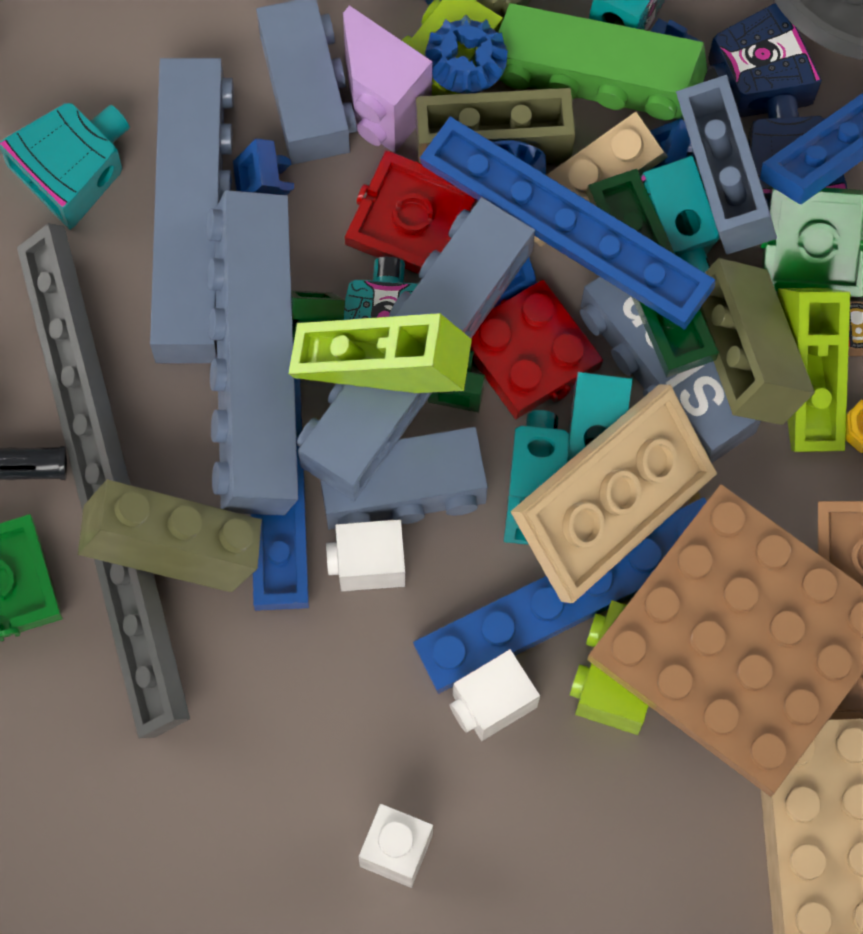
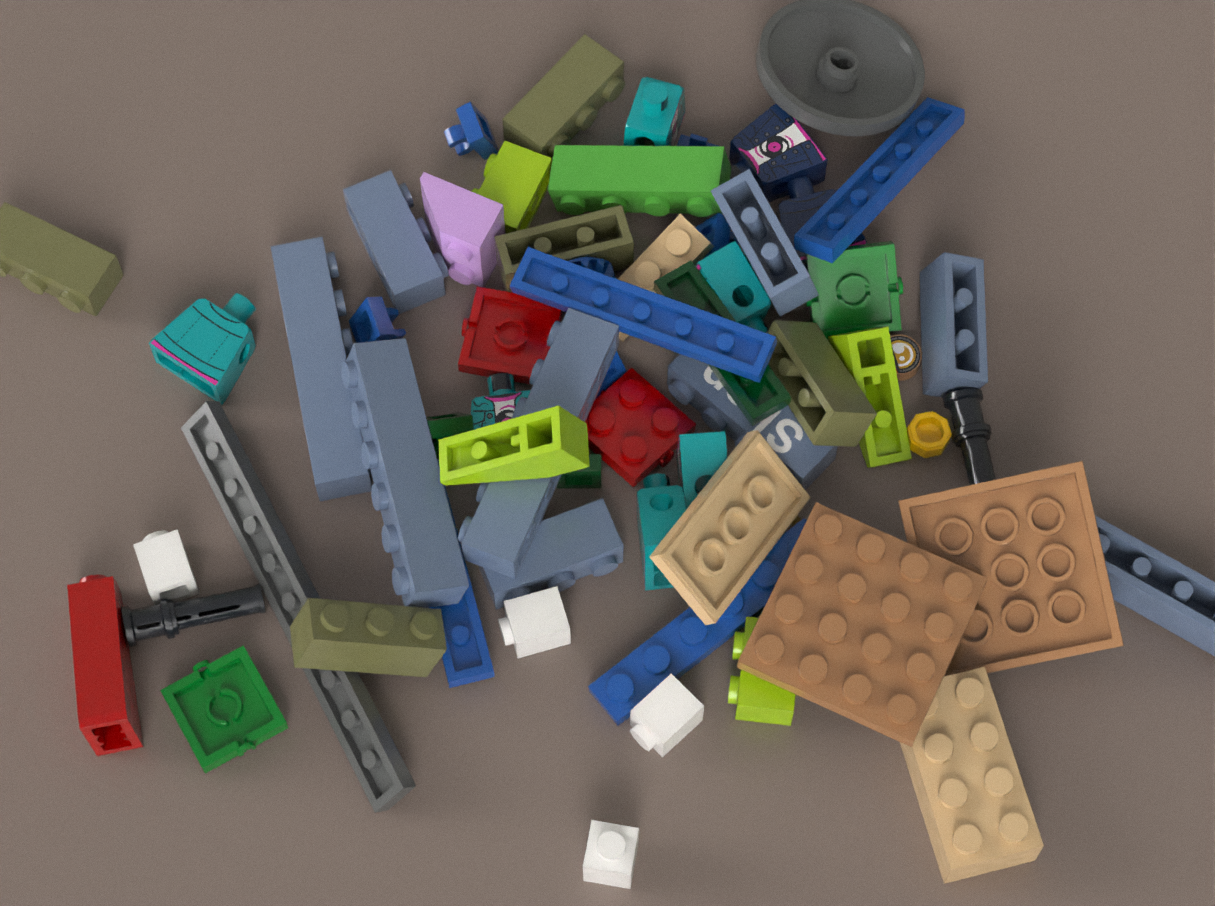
camera: 10 degrees left, 5 degrees down
(459, 73) = (528, 211): blue gear -> none

